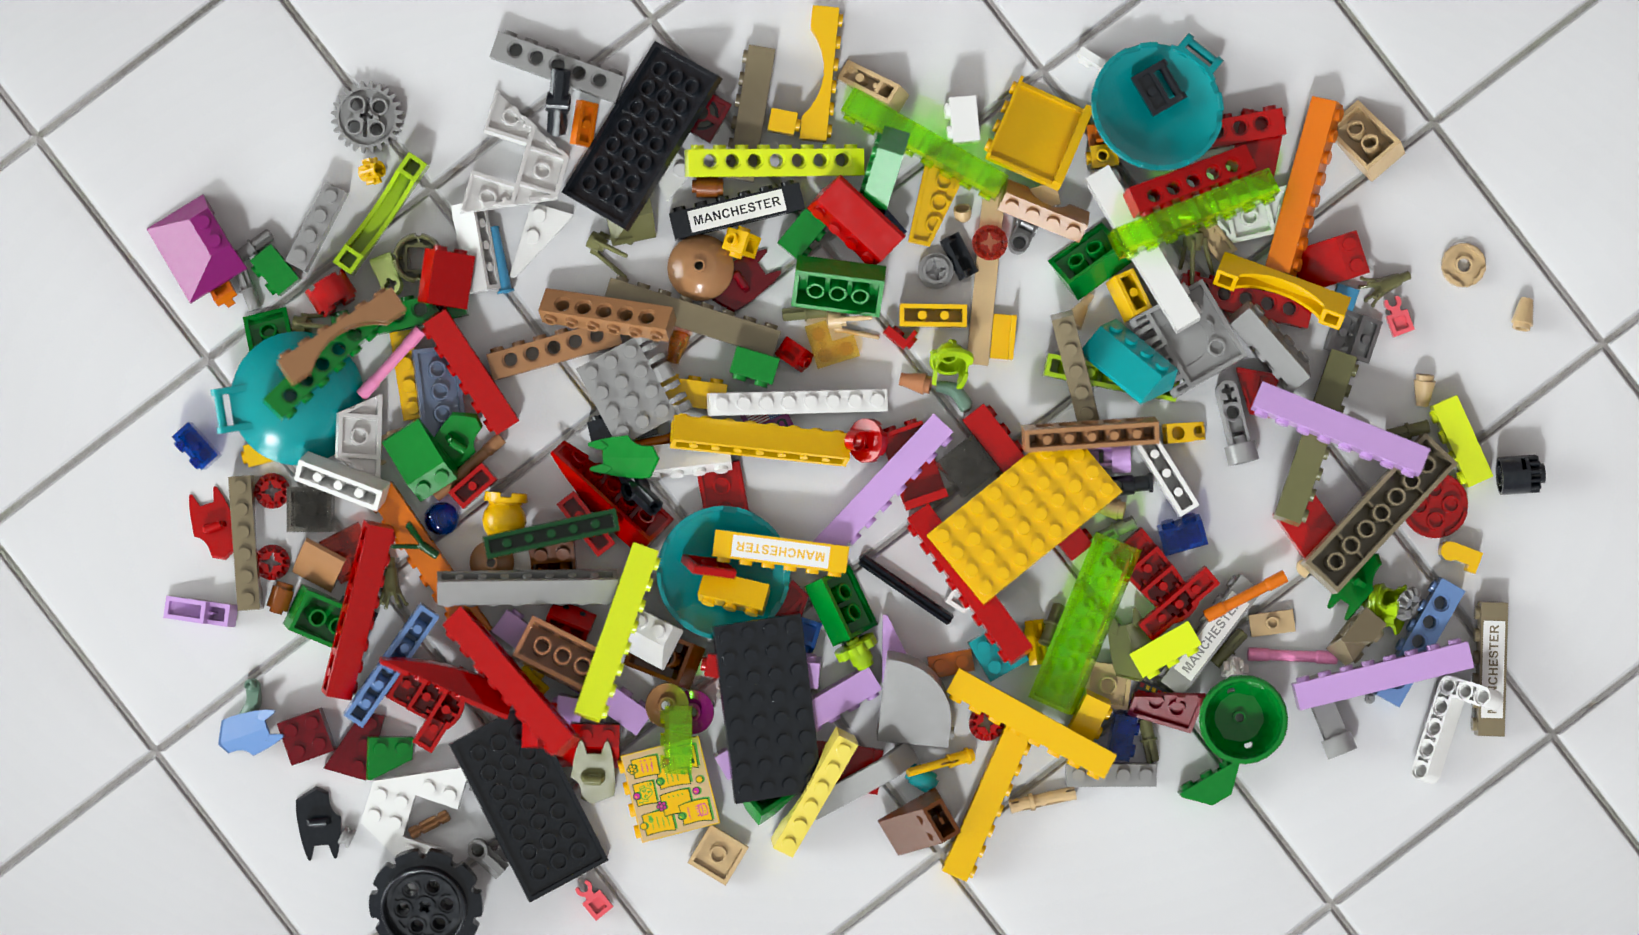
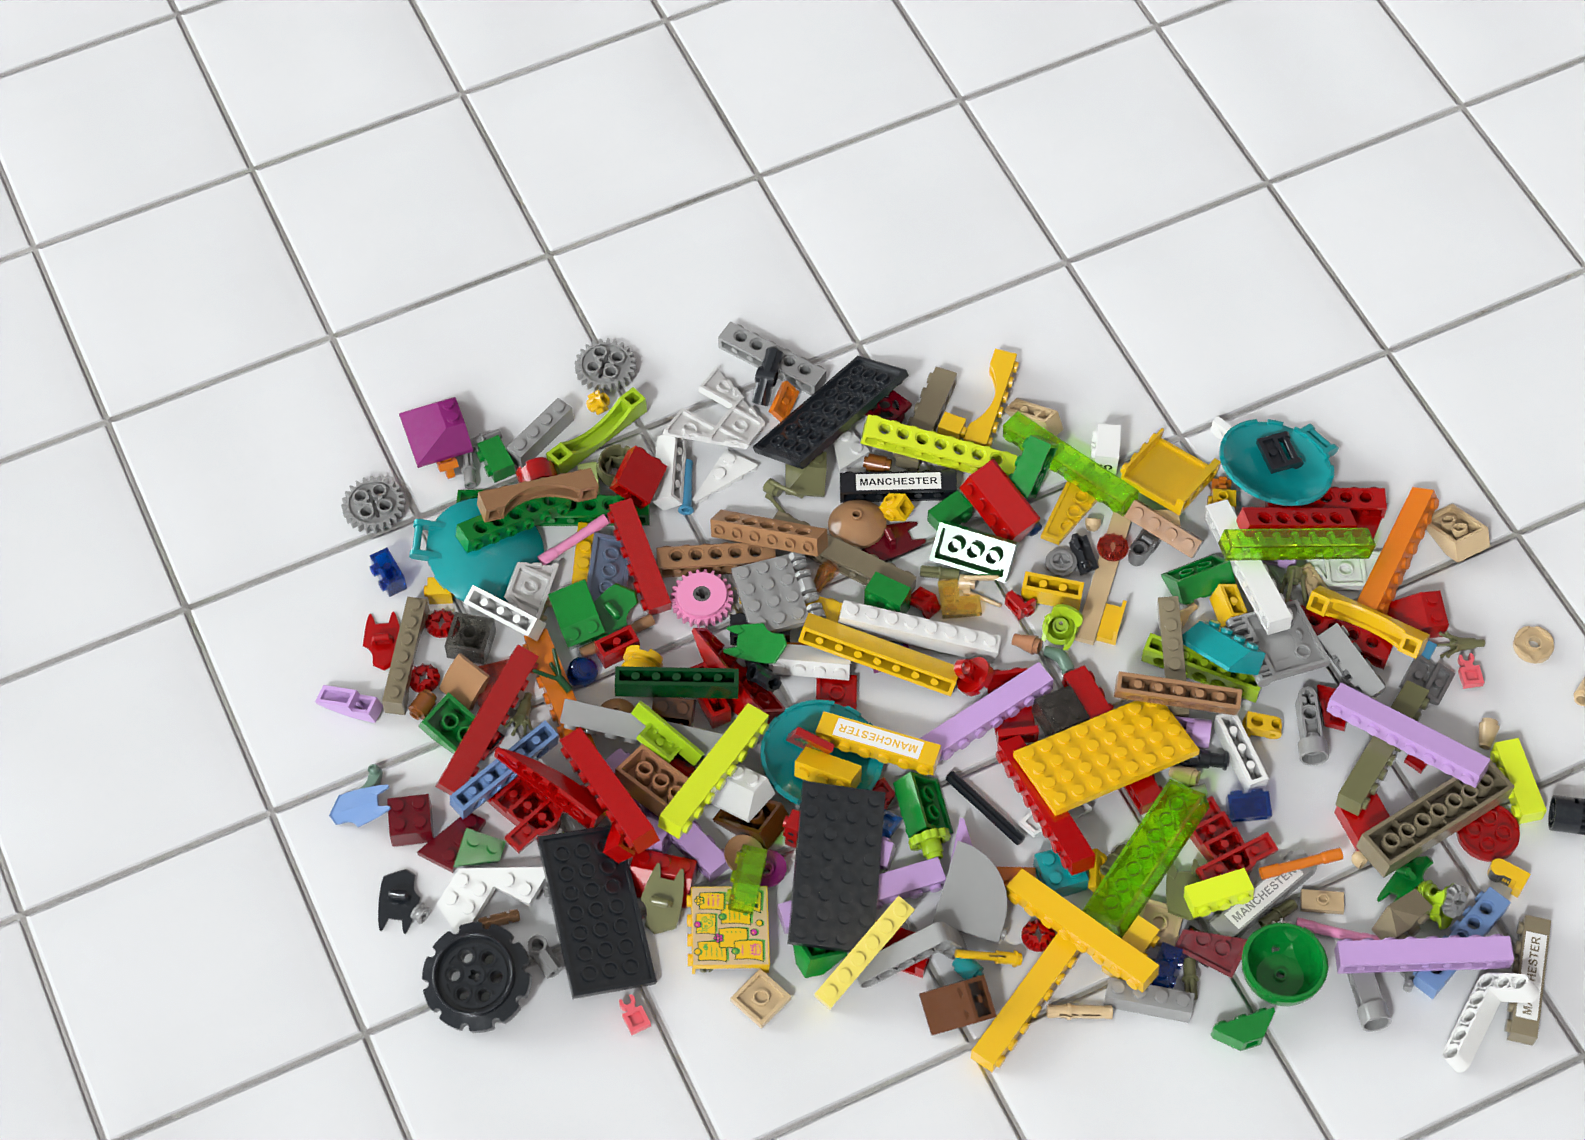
camera: 10 degrees right, 30 degrees down
(170, 347) = (355, 510): none -> light grey gear
(543, 417) = (702, 598): none -> bright pink gear
(551, 604) = (663, 738): none -> lime bracket

